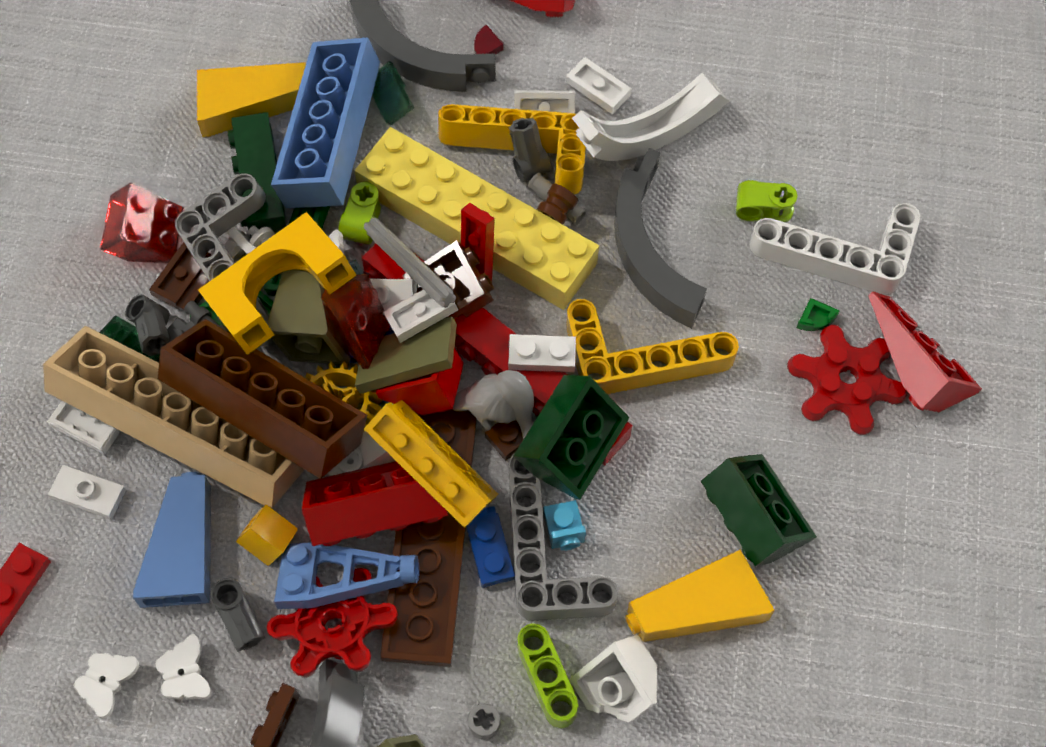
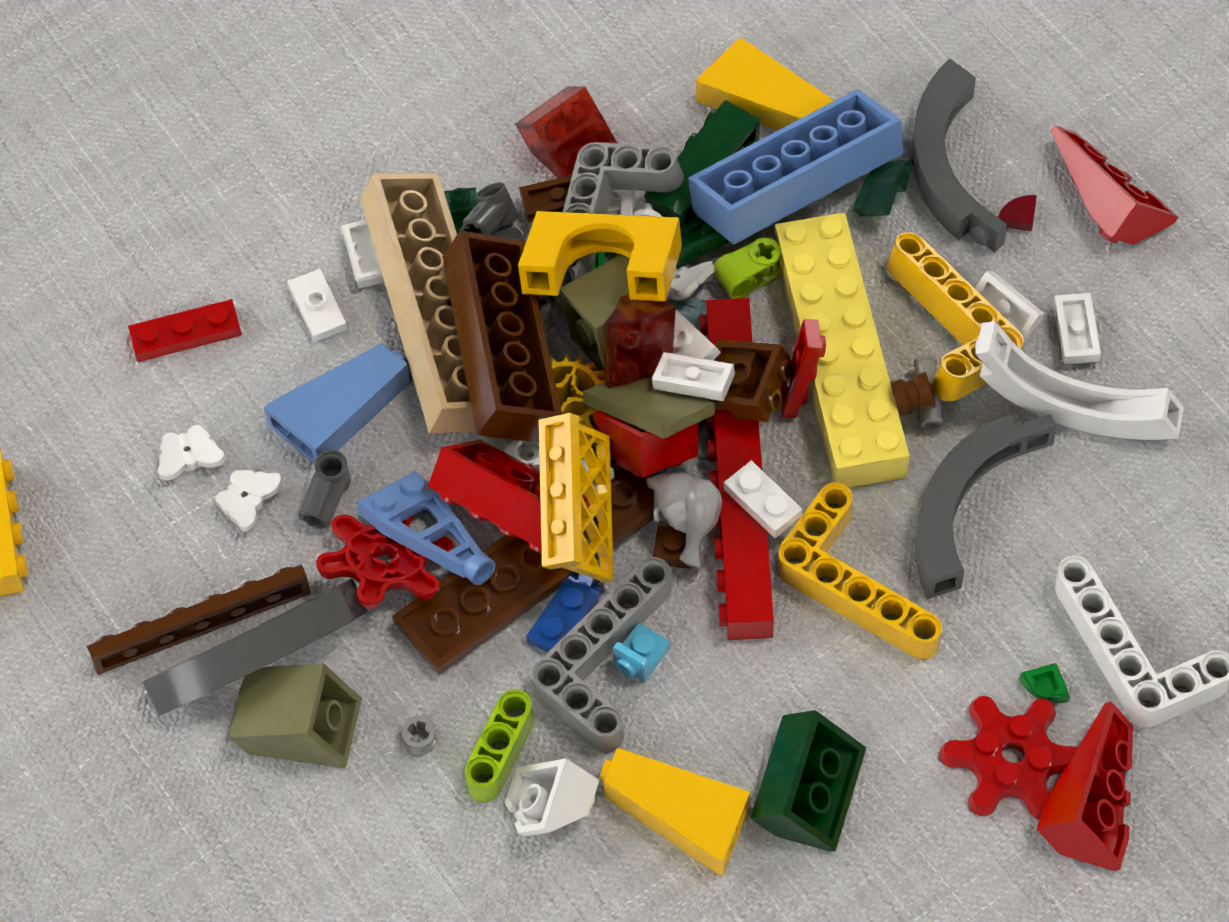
camera: 50 degrees right, 5 degrees down
(267, 535) = (408, 451): yellow panel -> none
(410, 263) = (726, 330): light grey axle -> none
(530, 155) = (944, 326): dark grey piece -> none
(572, 435) = (710, 581): dark green slope -> none
(763, 200) = (1109, 550): lime piece -> none

